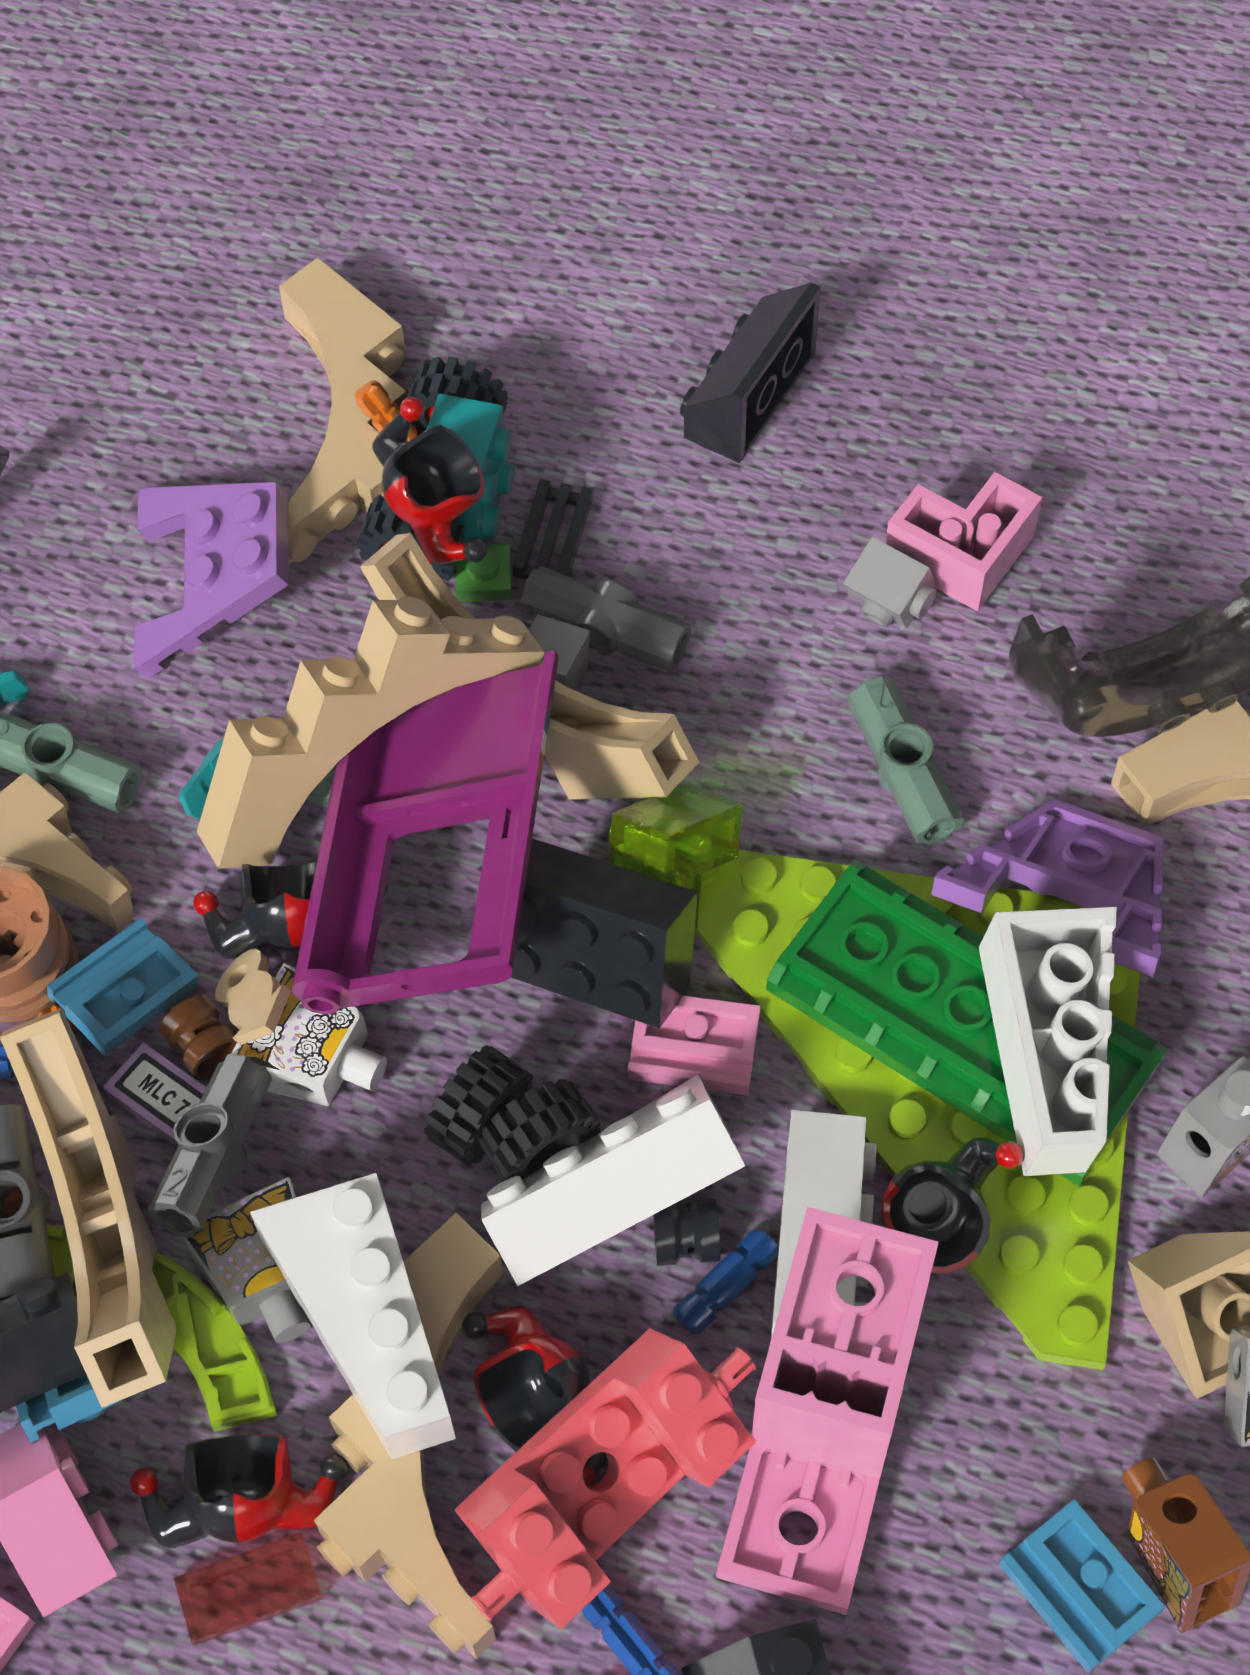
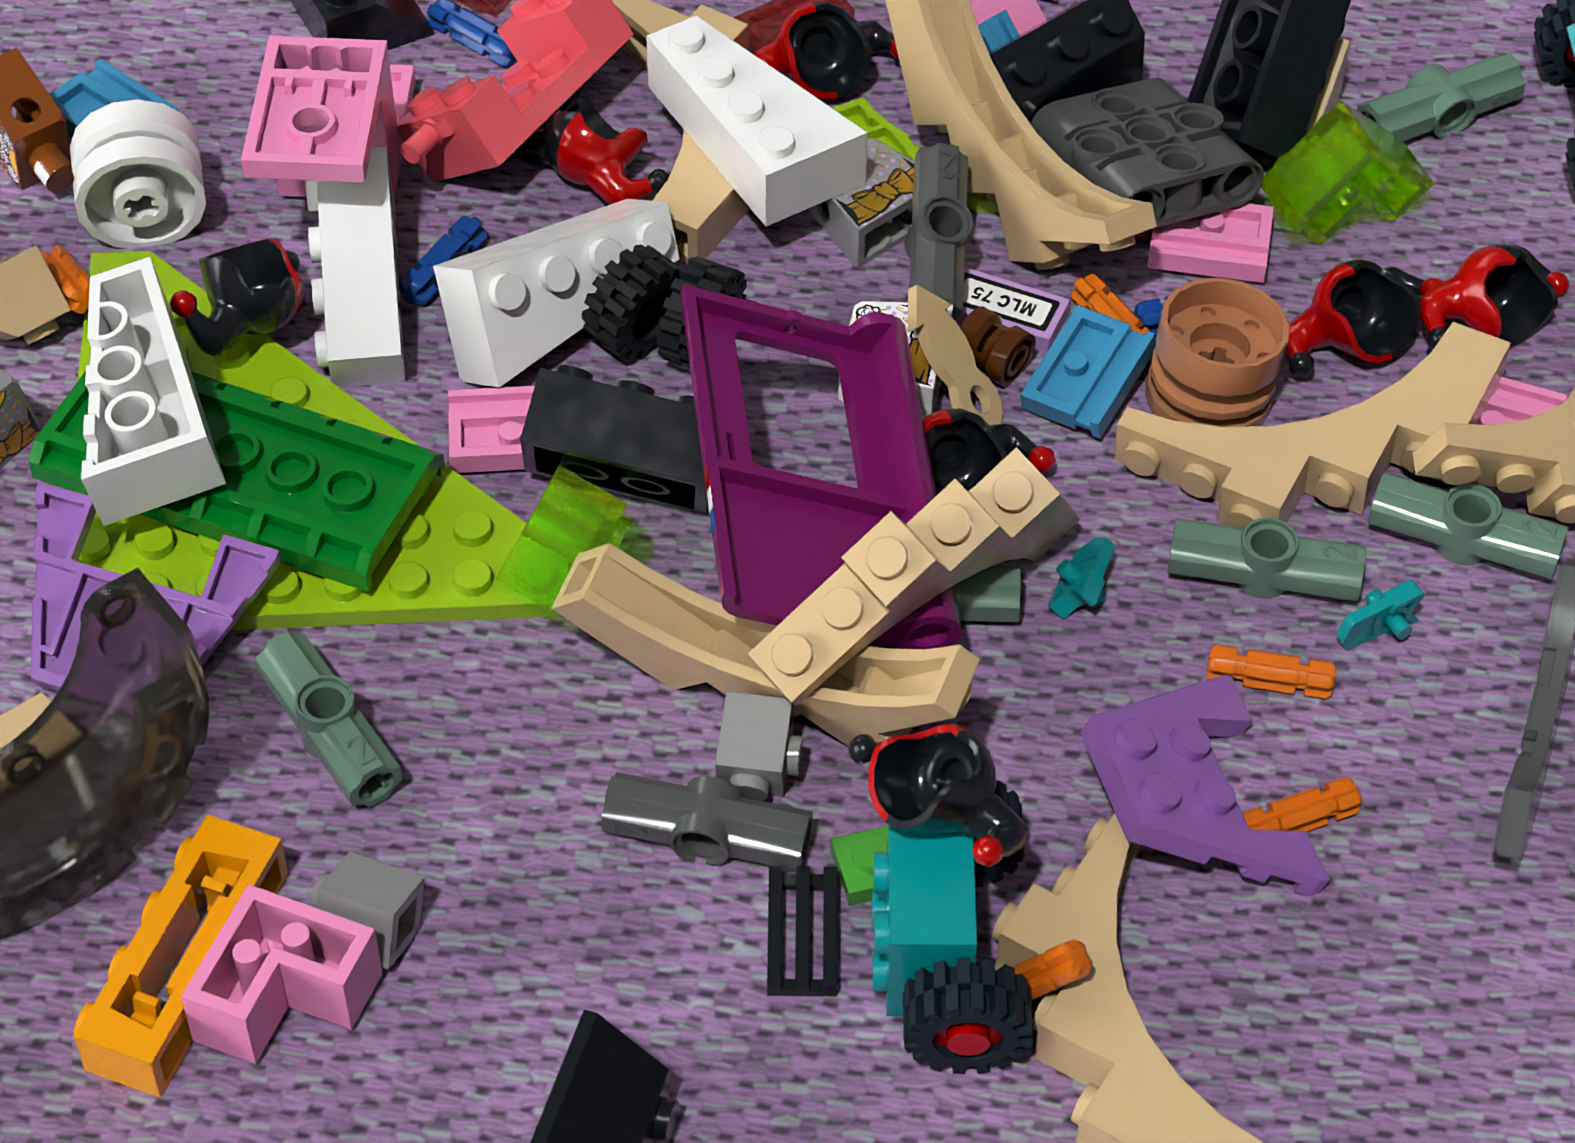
camera: 165 degrees right, 10 degrees down
(97, 671) = (1272, 671): none -> orange axle
(133, 550) = (1307, 808): none -> orange axle
(1052, 1413) = (137, 174): none -> white wheel
(1086, 533) = (125, 1030): none -> light orange brick
(1130, 1317) = (70, 277): none -> orange axle

